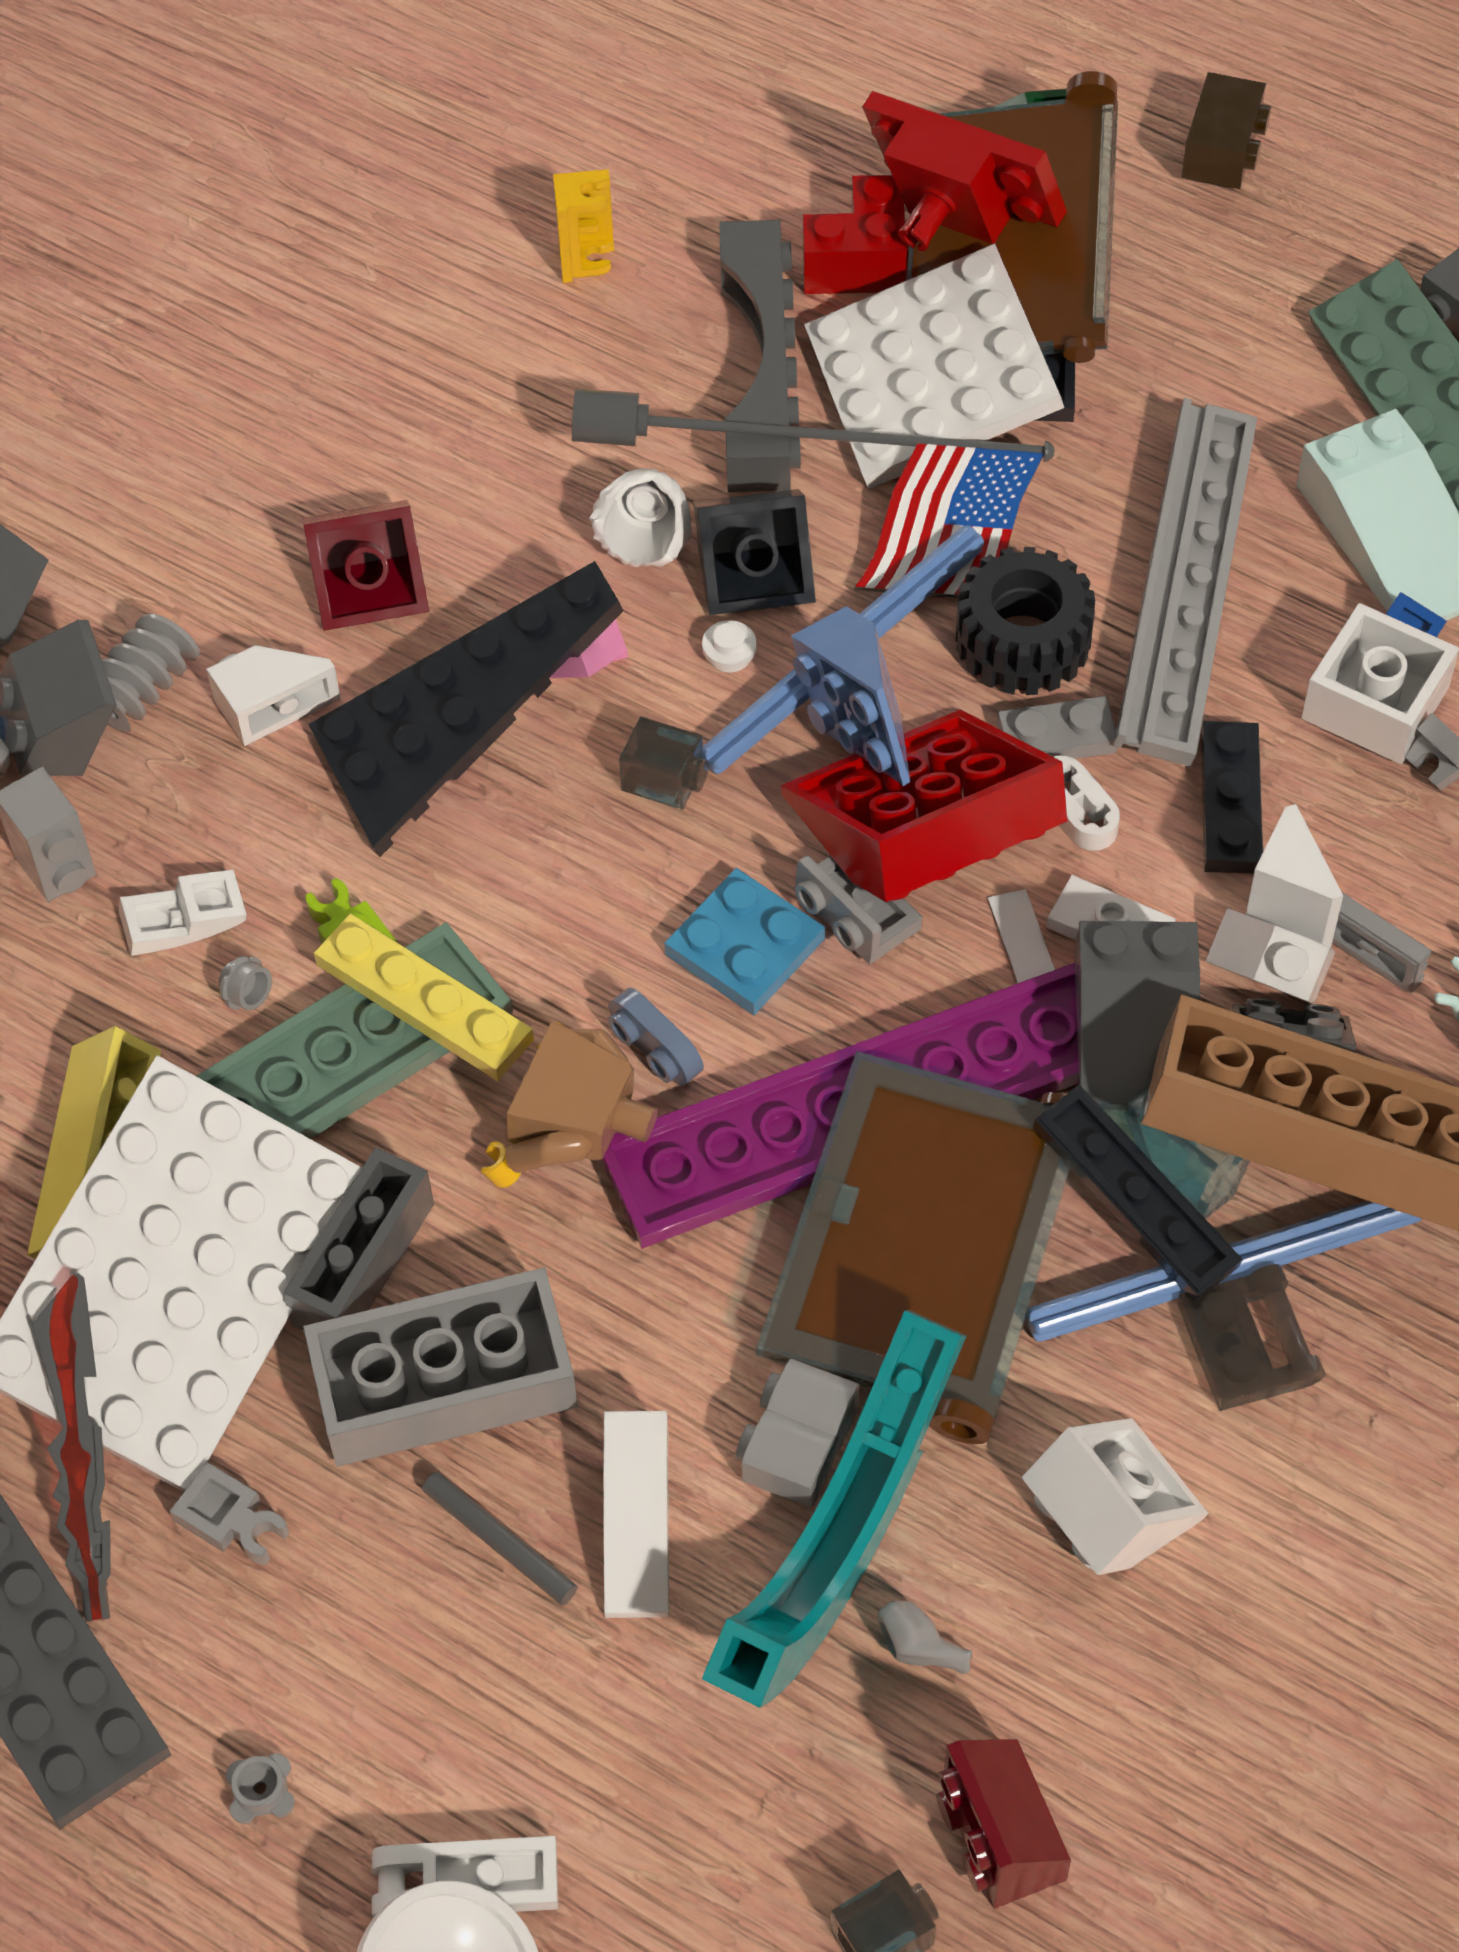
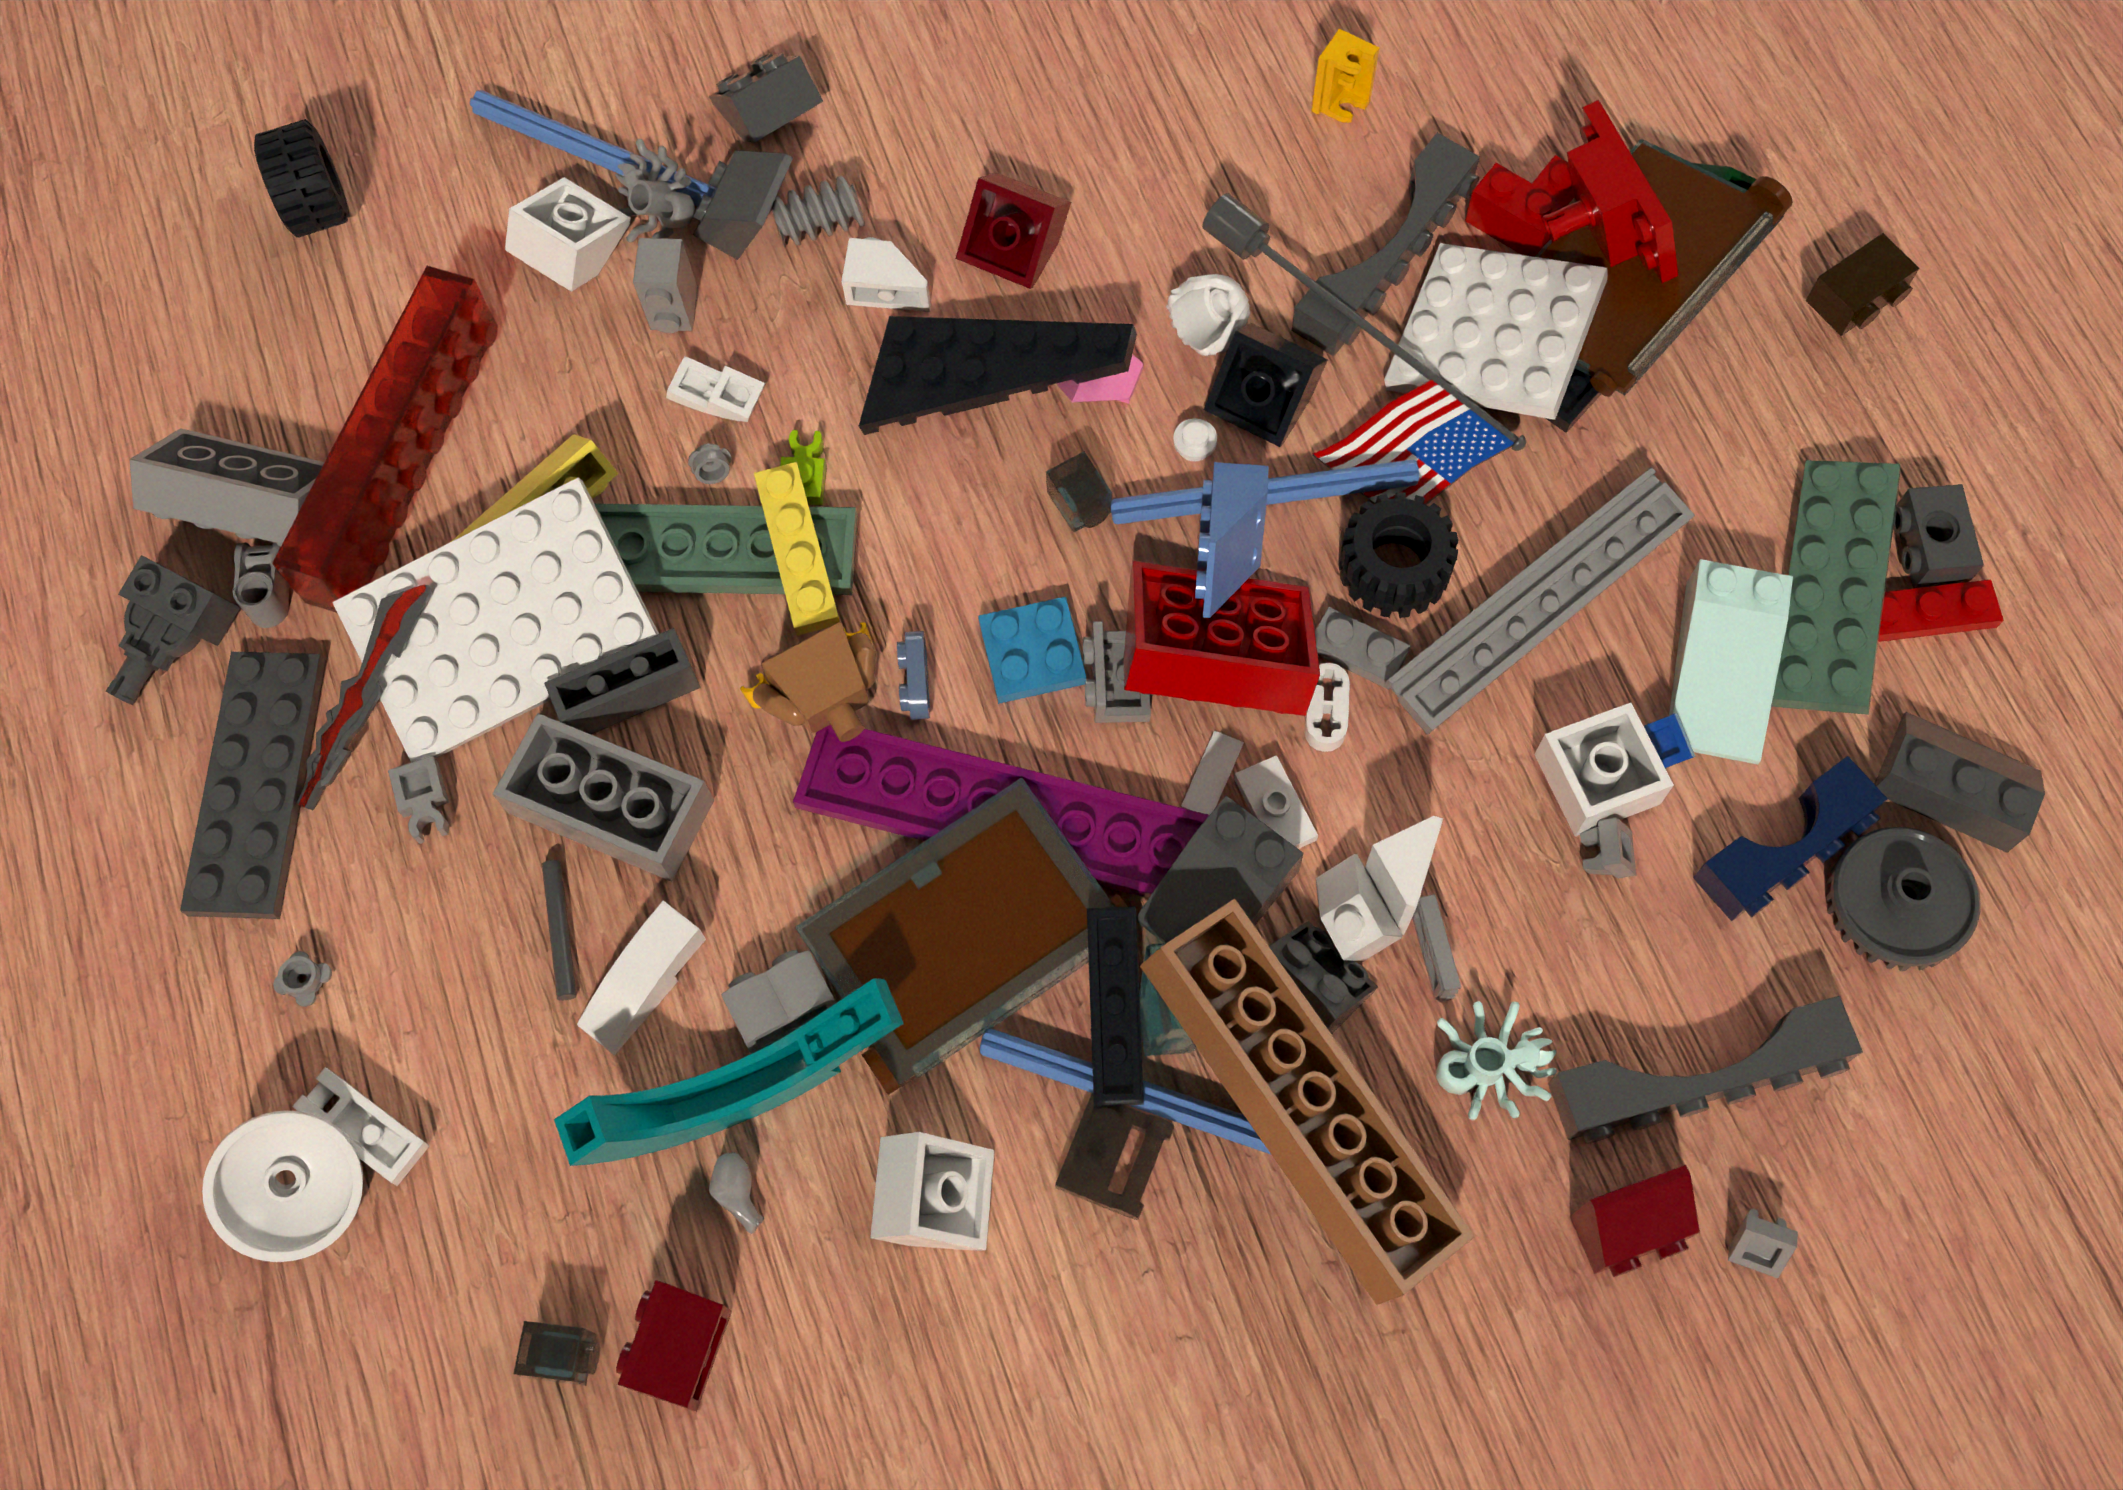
camera: 40 degrees right, 10 degrees up
(1231, 796) = (1436, 773): black plate -> none

